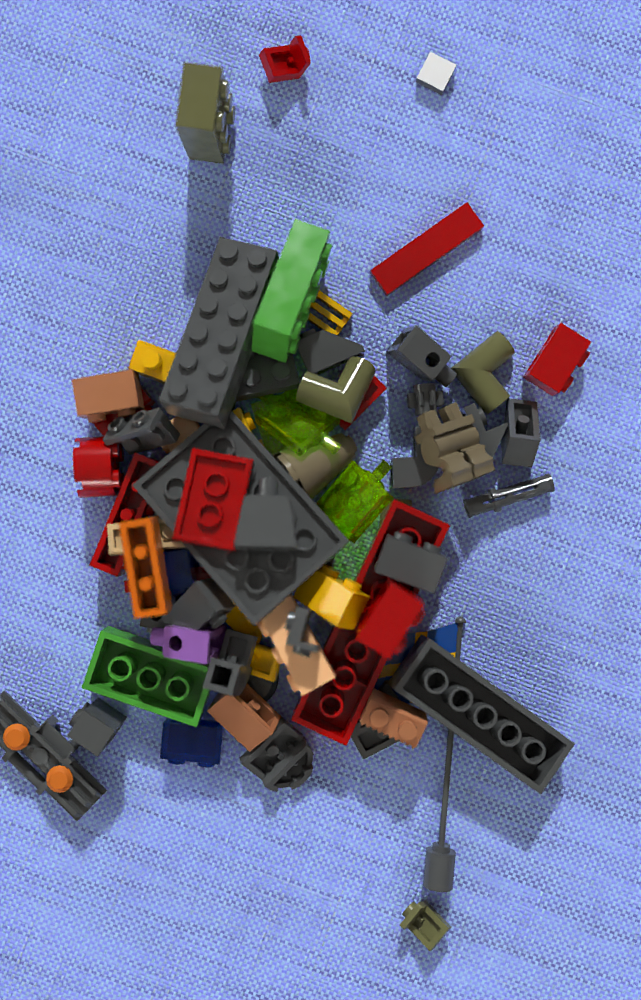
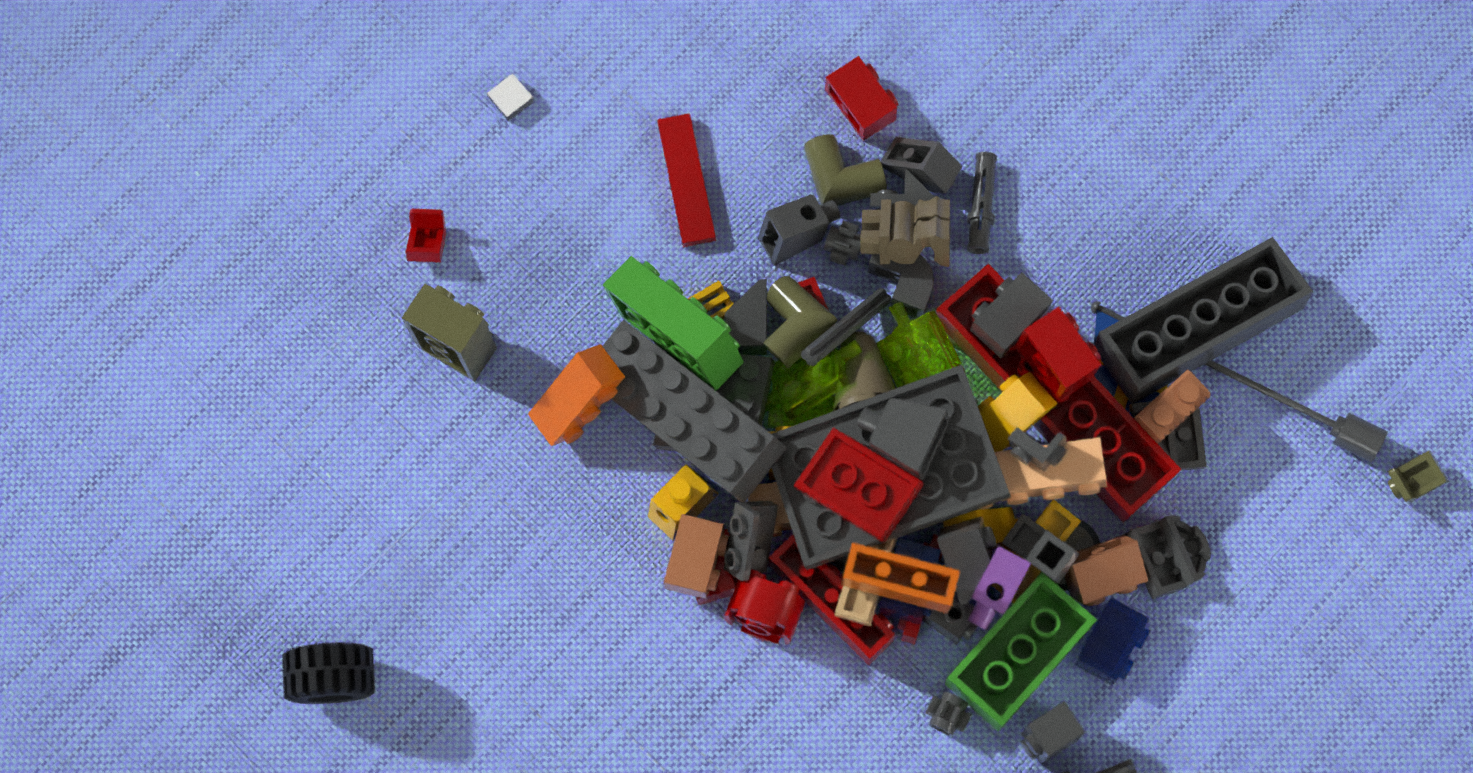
camera: 65 degrees left, 15 degrees down
(82, 639) = (948, 714): none -> dark grey gear
(198, 242) = (576, 395): none -> orange brick
(349, 431) = (845, 327): none -> dark grey axle

